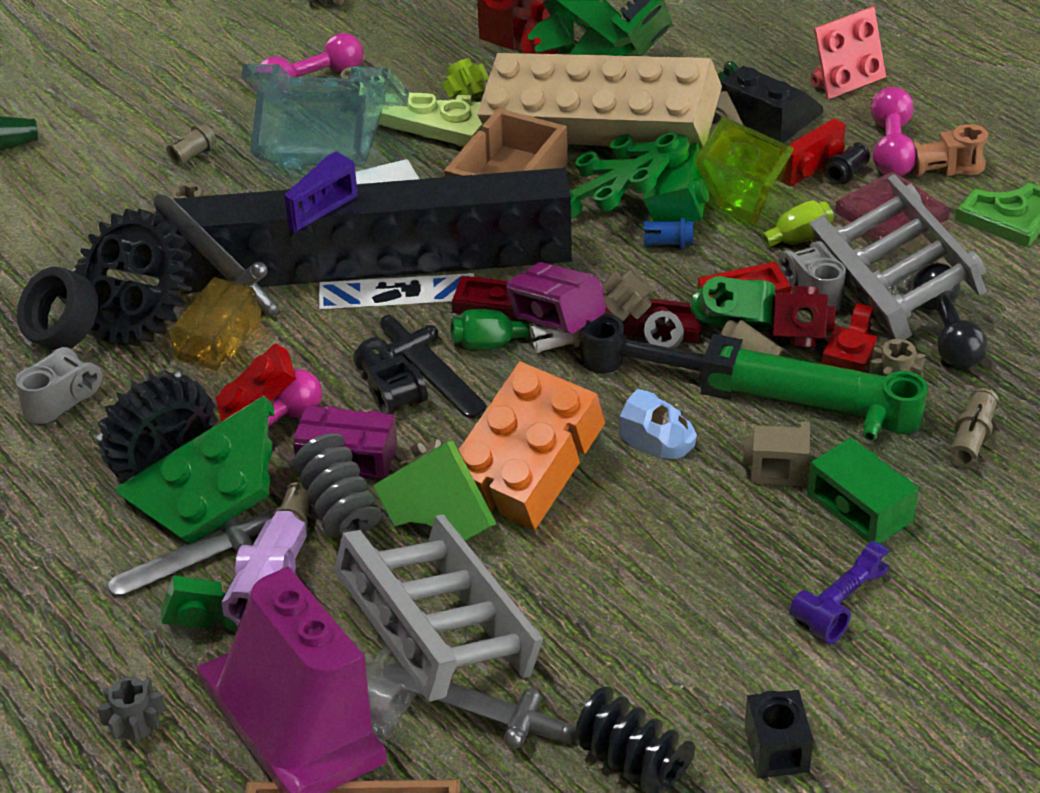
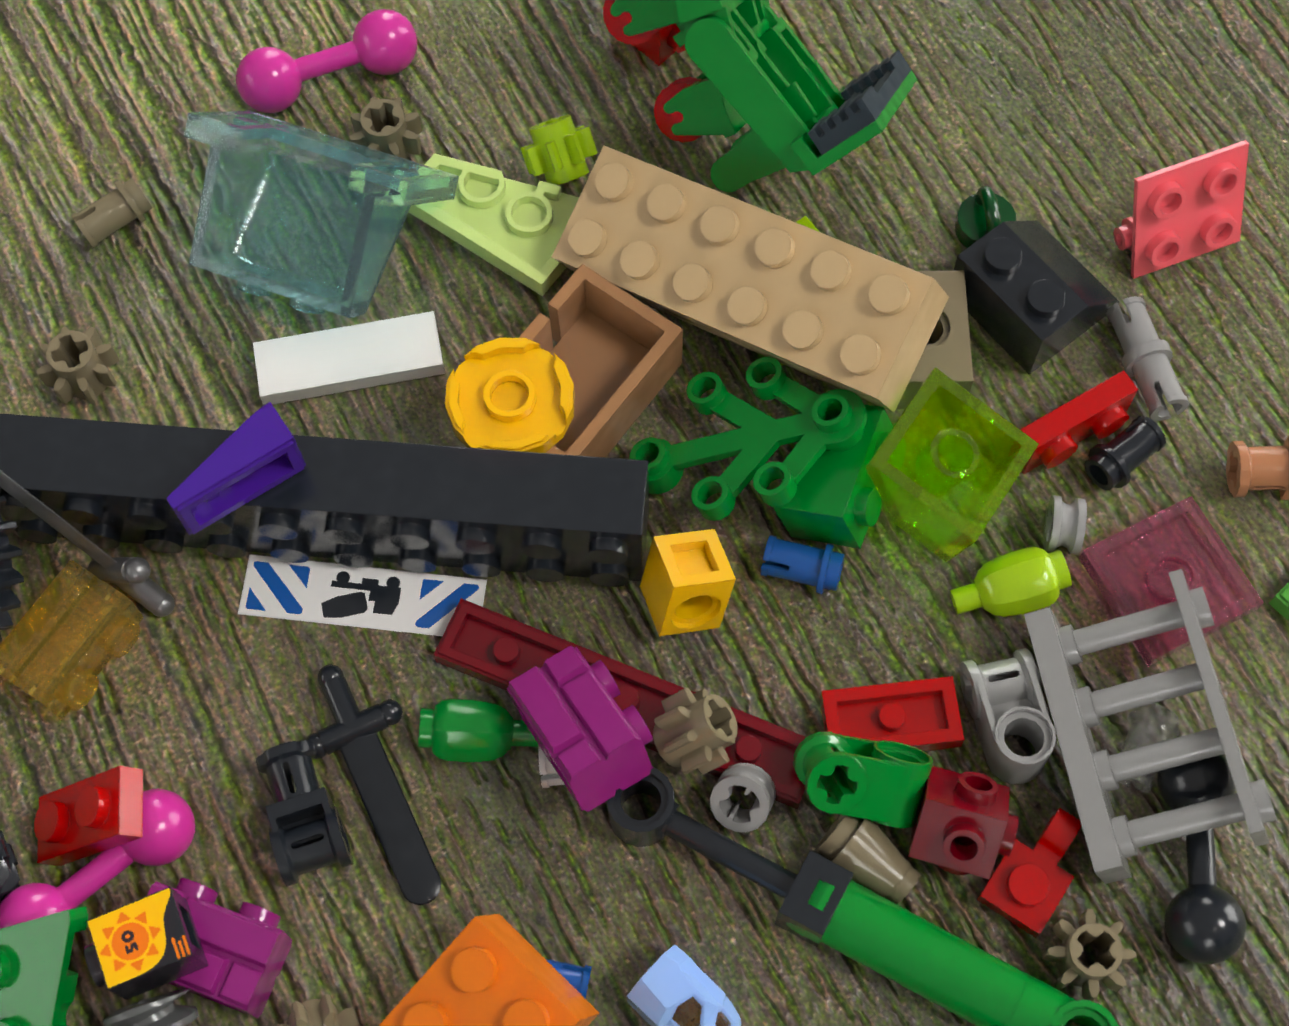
camera: 10 degrees right, 25 degrees up
(313, 411) = (144, 944): none -> brick
(471, 156) = (510, 397): none -> yellow tile
(592, 229) = (687, 582): none -> yellow brick
(822, 191) = (1065, 525): none -> light grey bush
(855, 128) = (1147, 358): none -> light grey pin
(893, 152) = (1207, 454): dark pink piece -> none

